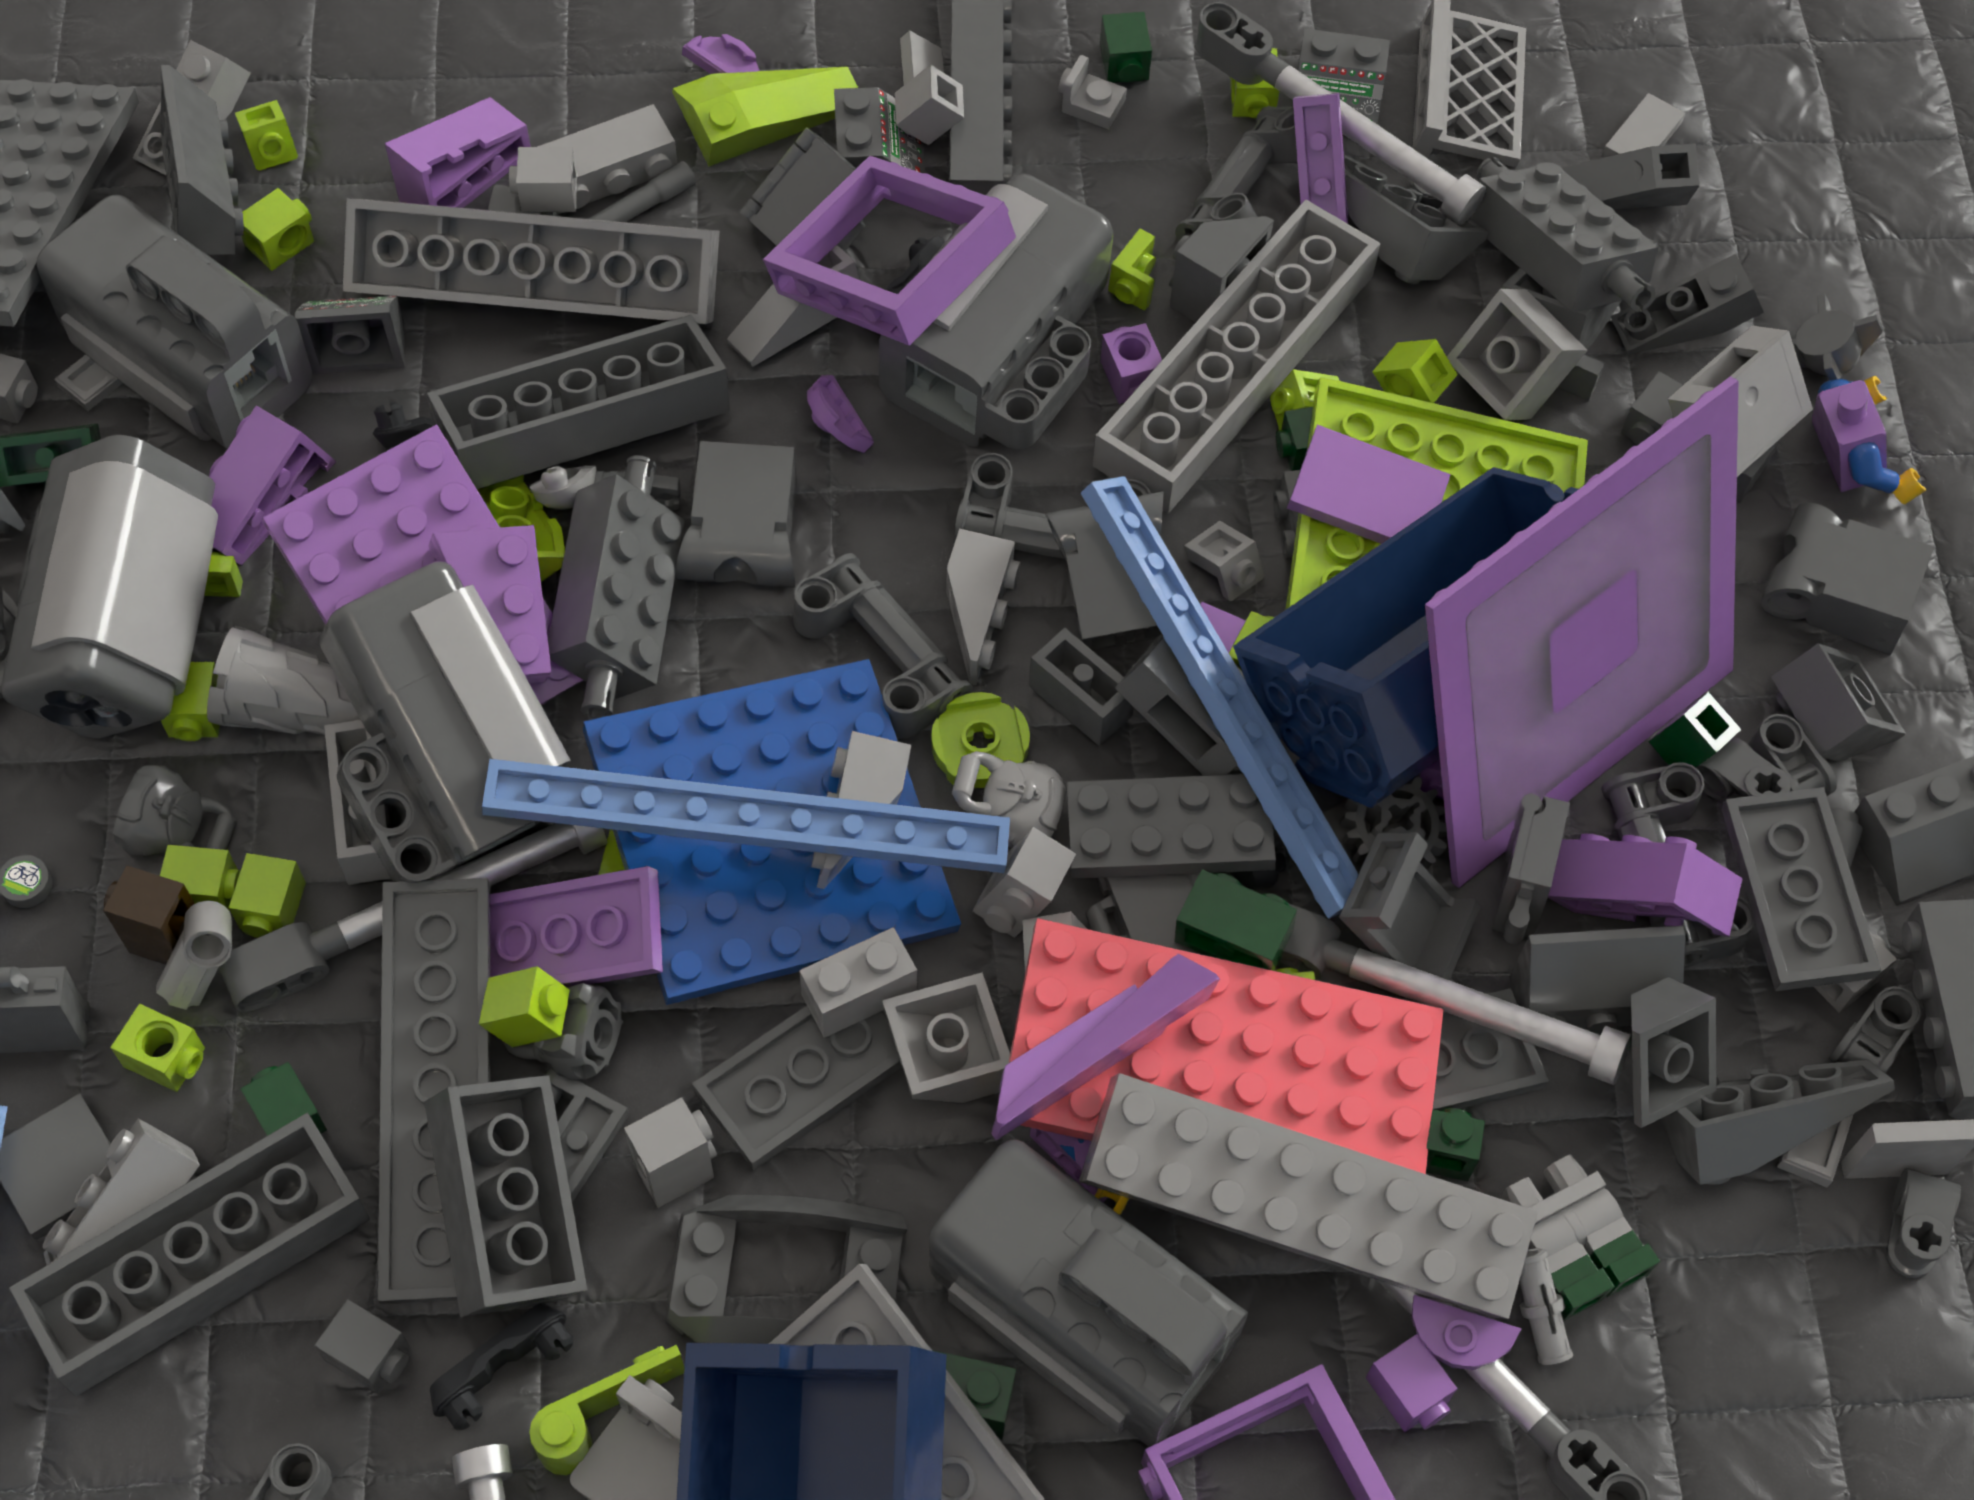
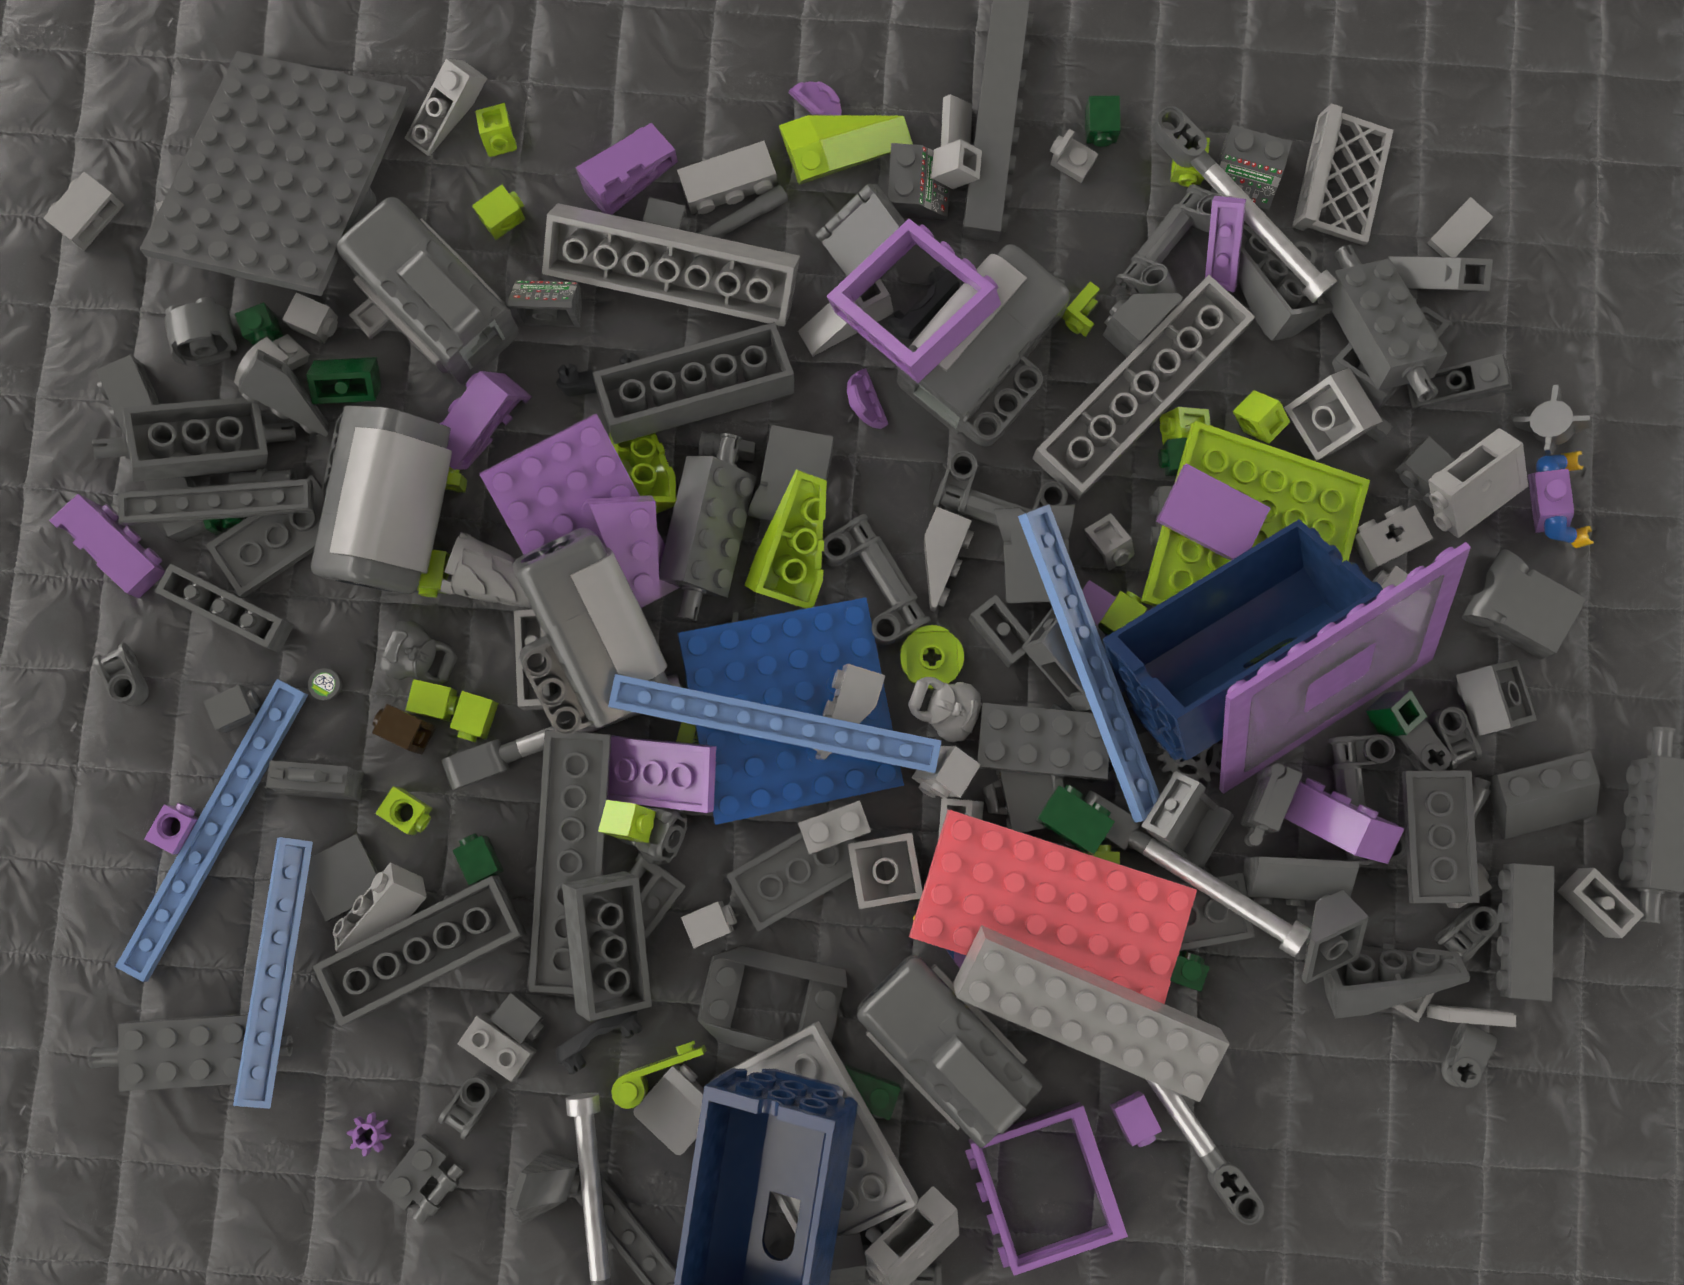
camera: 10 degrees right, 20 degrees up
(196, 954) = (429, 757): light grey piece -> none
(198, 166) = (447, 170): dark grey slope -> none
(329, 1396) = (496, 1047): none -> light grey brick
(545, 179) = (683, 202): light grey brick -> none
(559, 485) = (679, 442): light grey arm -> none
(748, 609) = (792, 548): none -> lime wedge
(1099, 1041) = (977, 903): medium lavender wedge -> none
(1128, 358) = (1065, 395): medium lavender brick -> none
(1460, 1336) = (1169, 1103): medium lavender plate -> none
(1543, 1309) = (1223, 1086): light grey pin -> none
(1584, 1235) = (1255, 1041): light grey hips -> none

